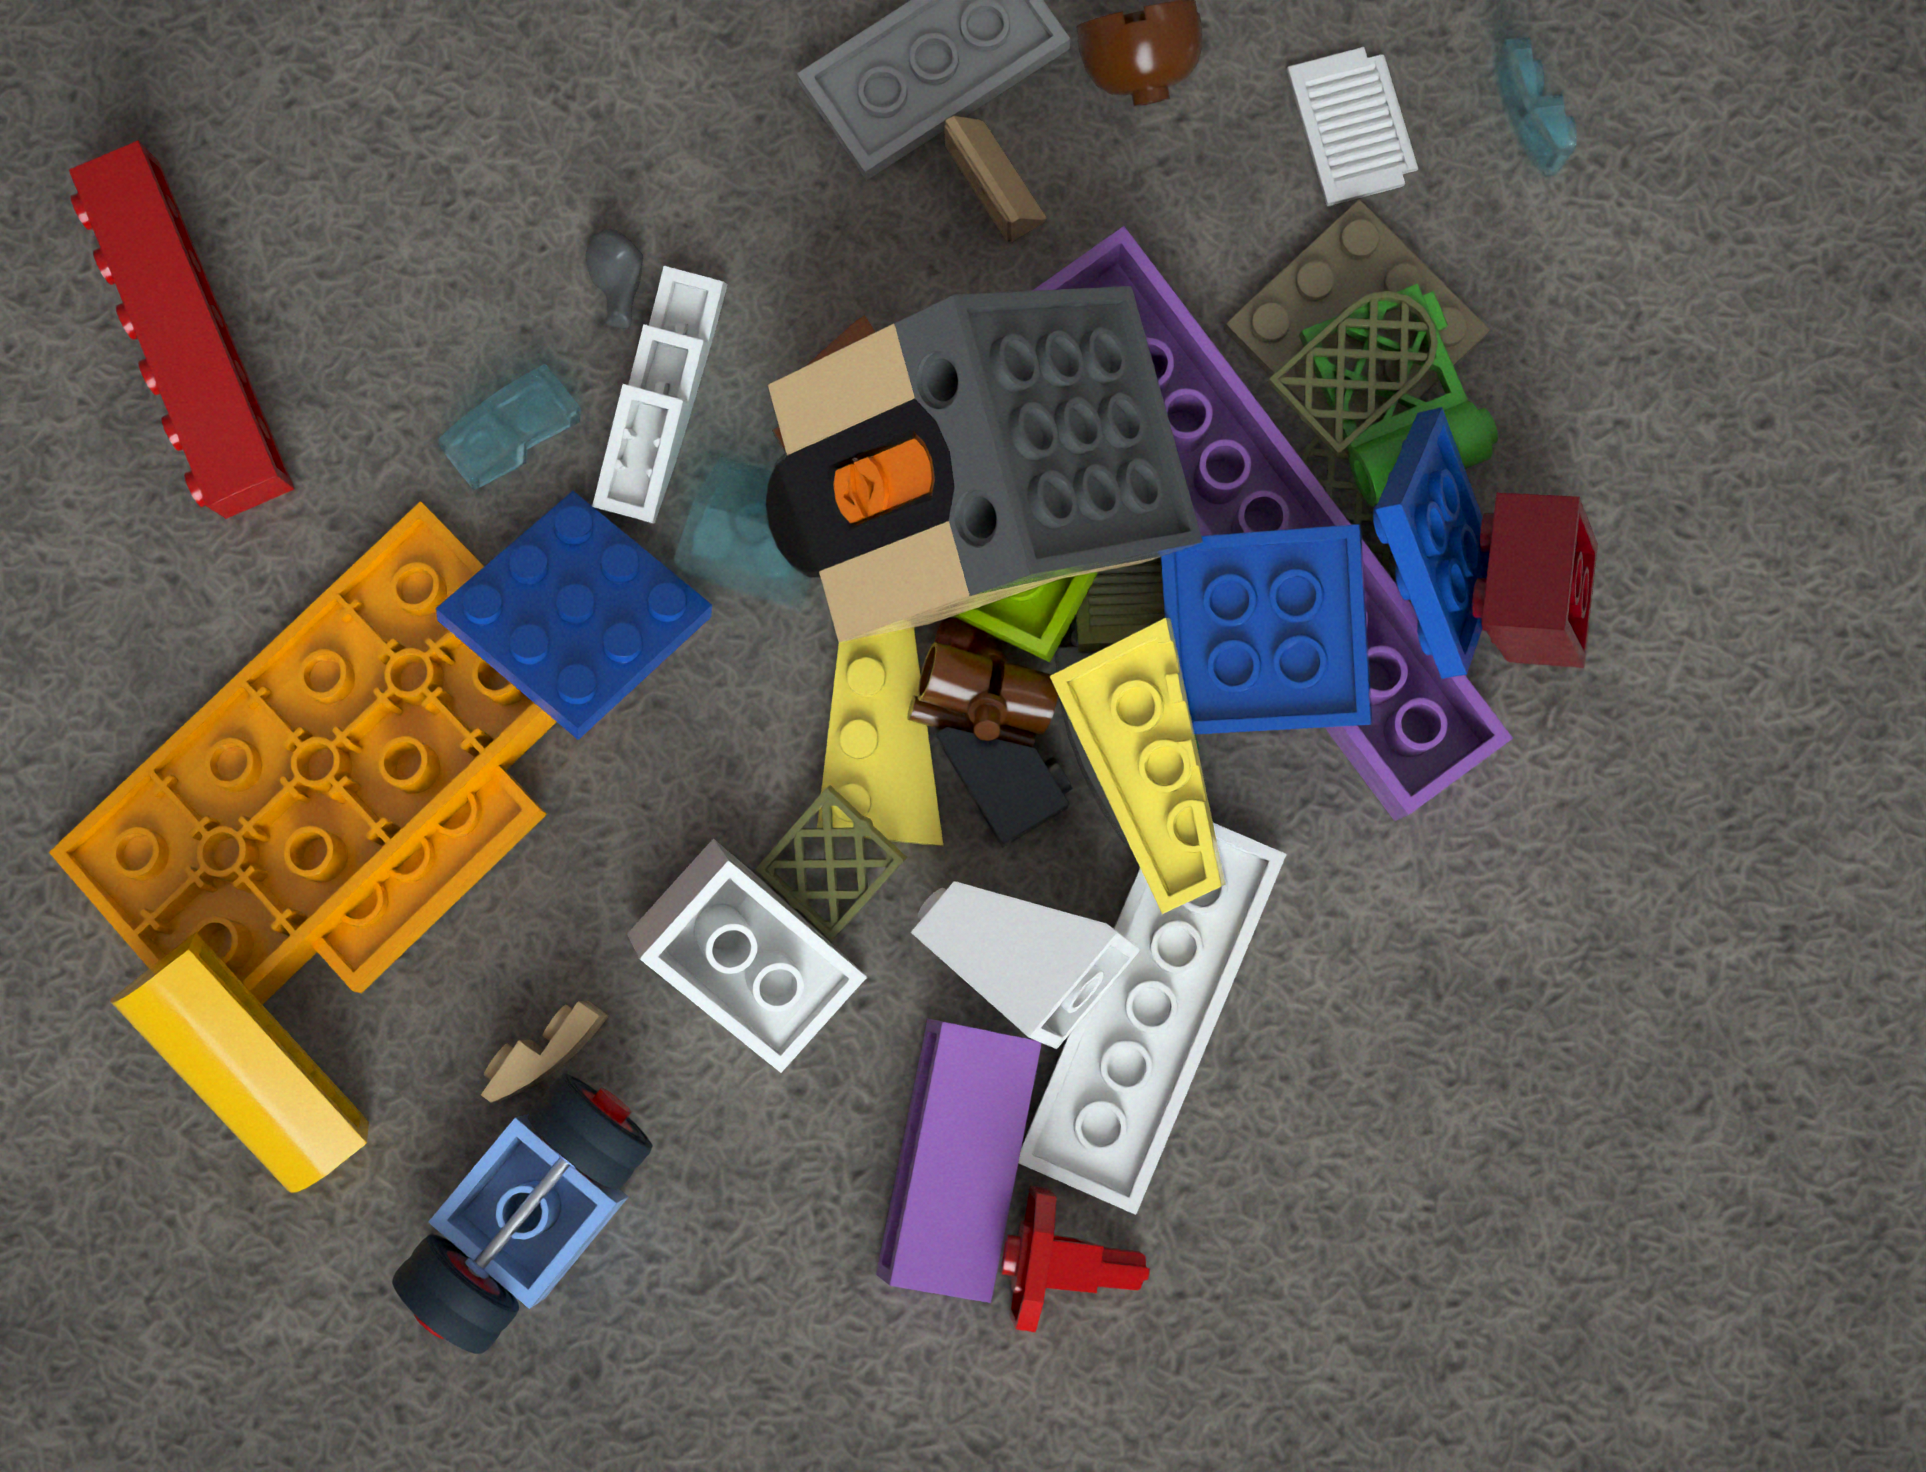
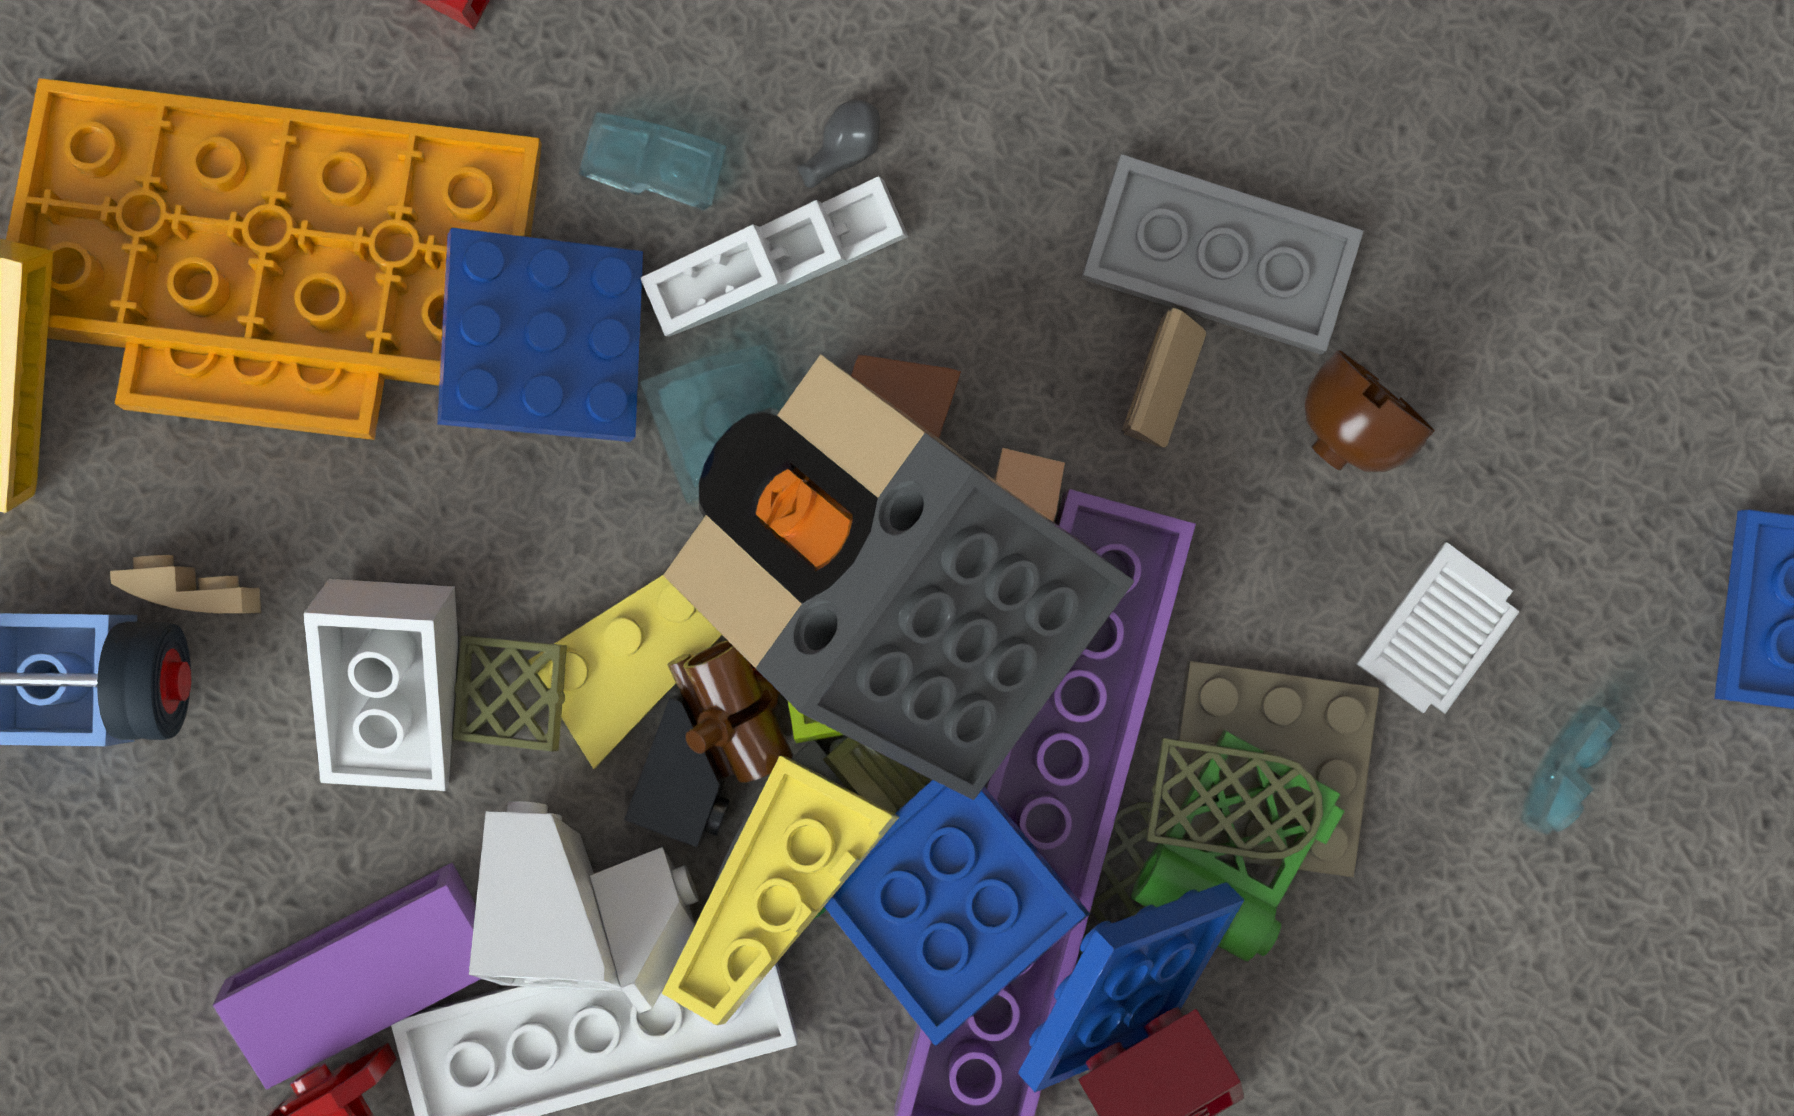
camera: 45 degrees right, 5 degrees up
(1096, 884) = (645, 921): none -> white slope

